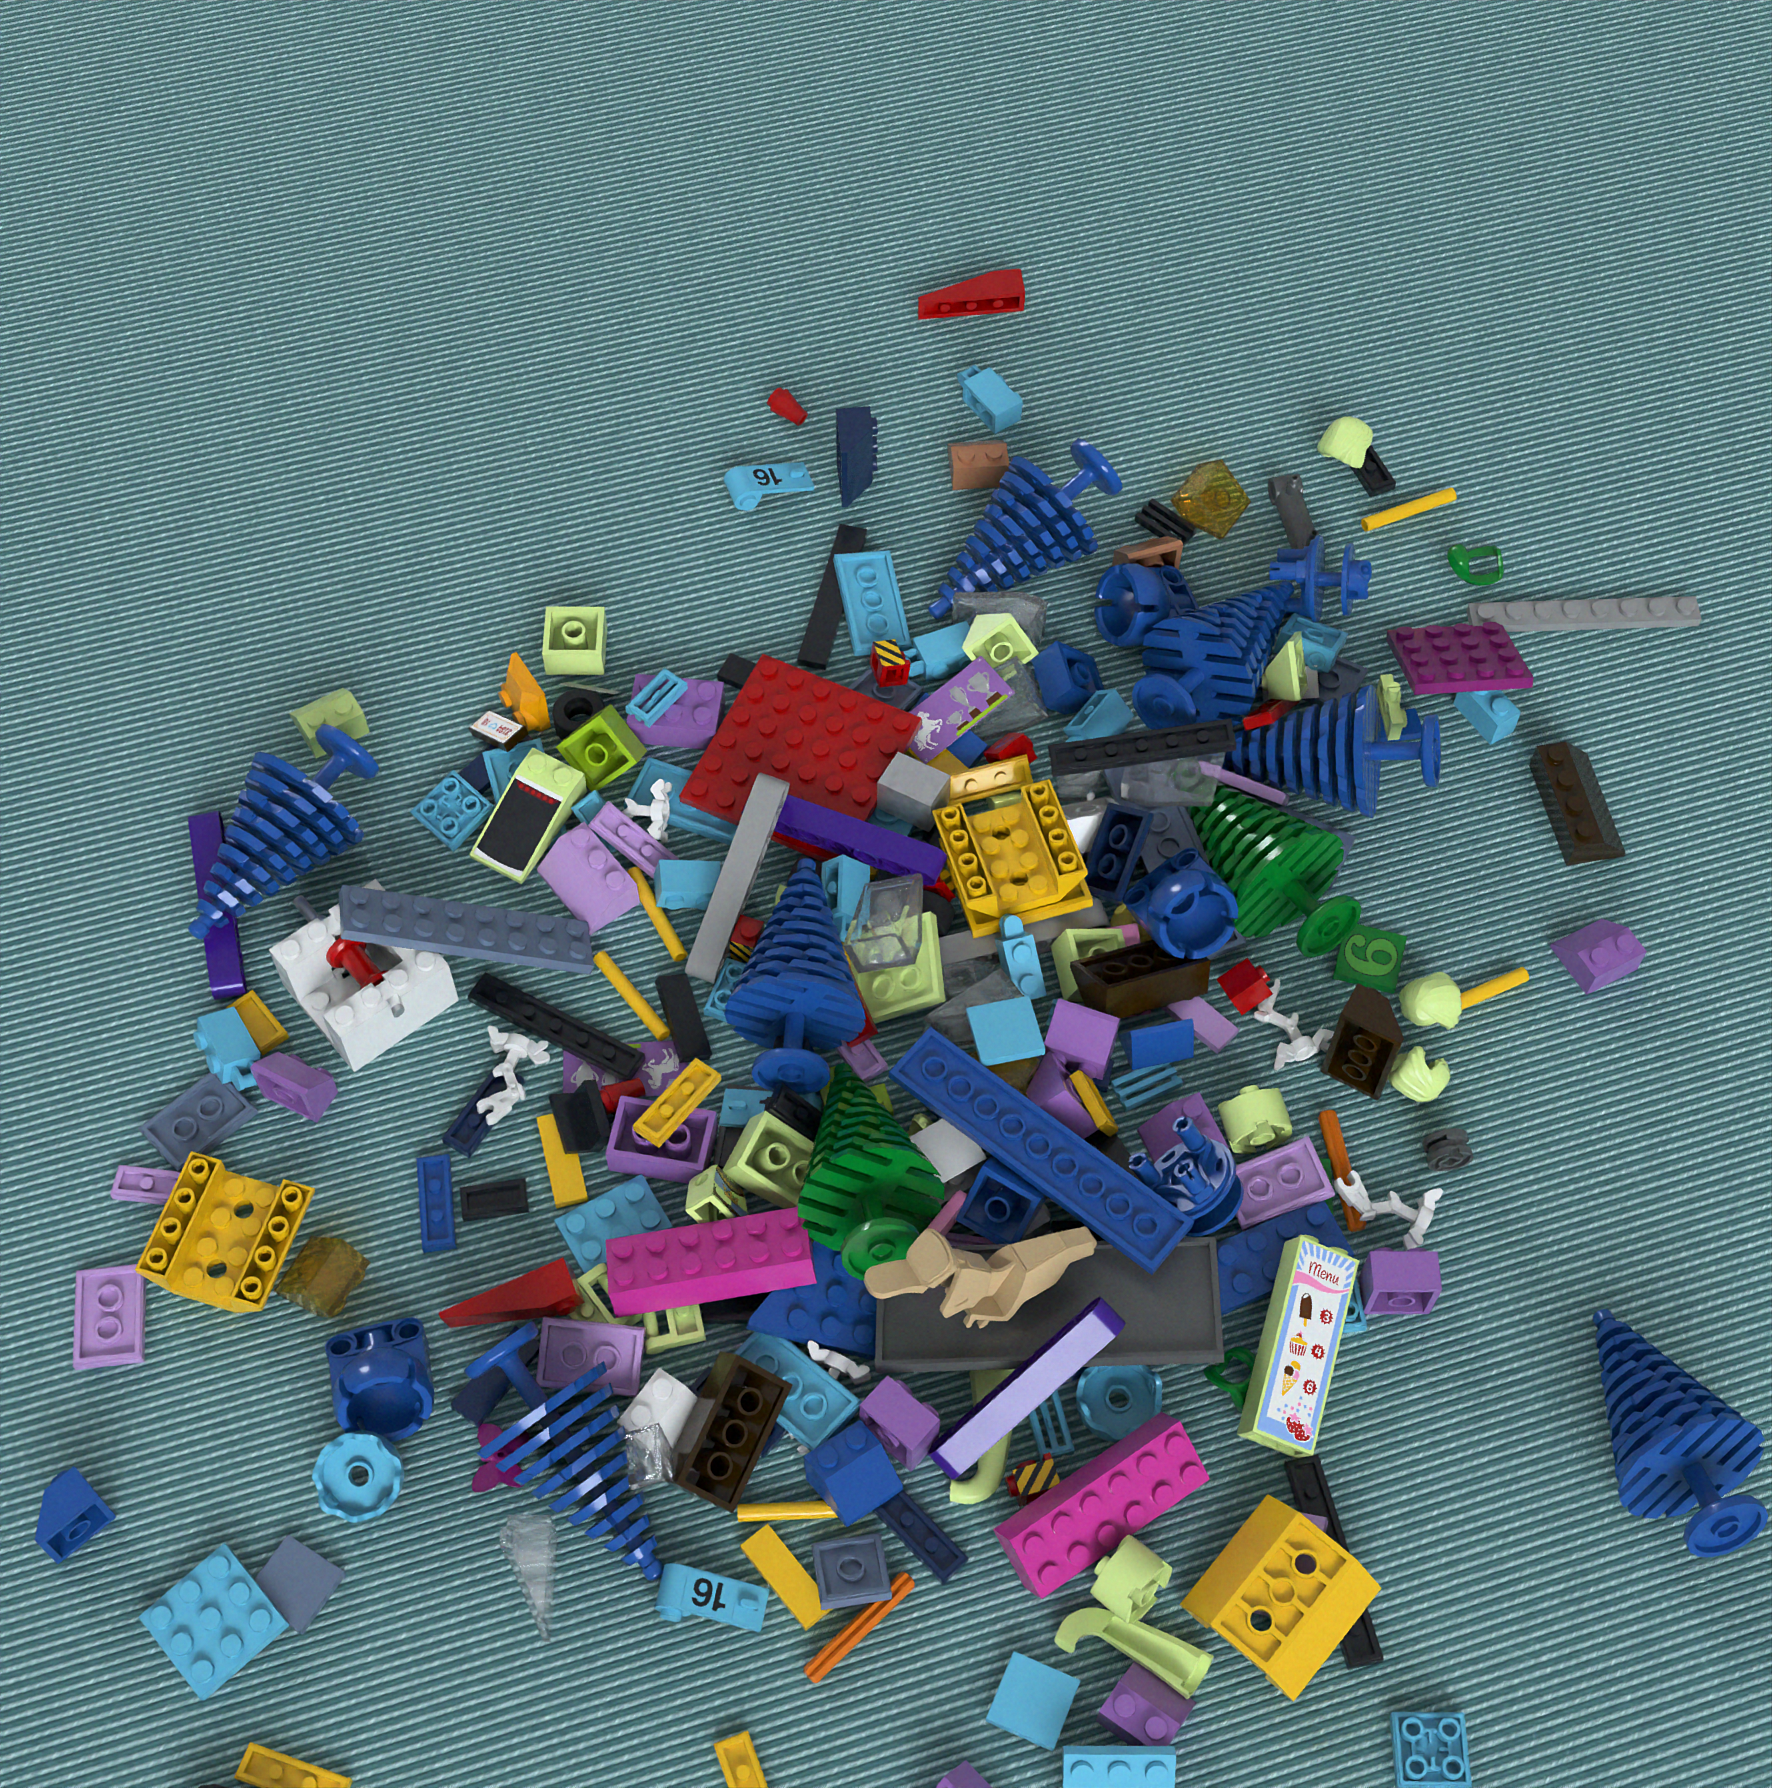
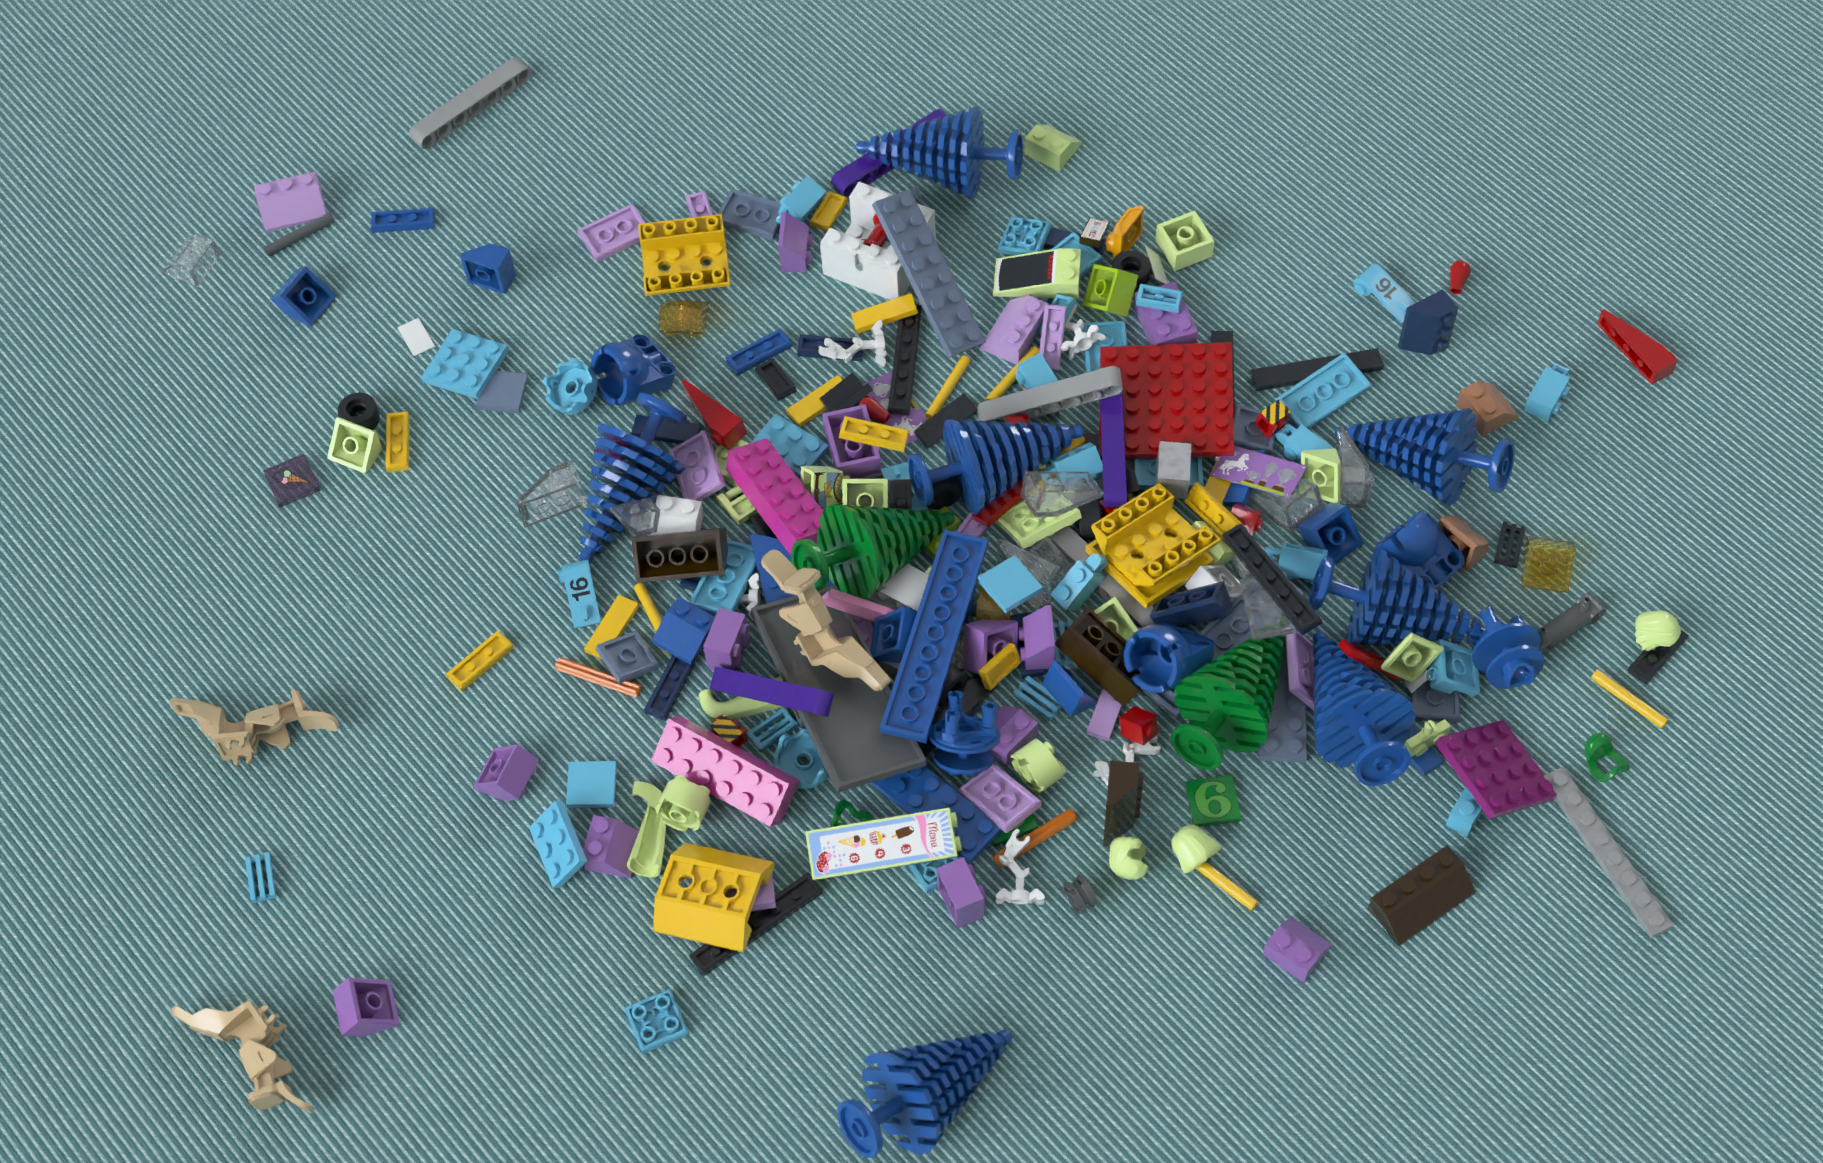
camera: 70 degrees right, 0 degrees up
(112, 1681) = (416, 336): none -> white sticker
(473, 1020) = (886, 312): none -> yellow tile

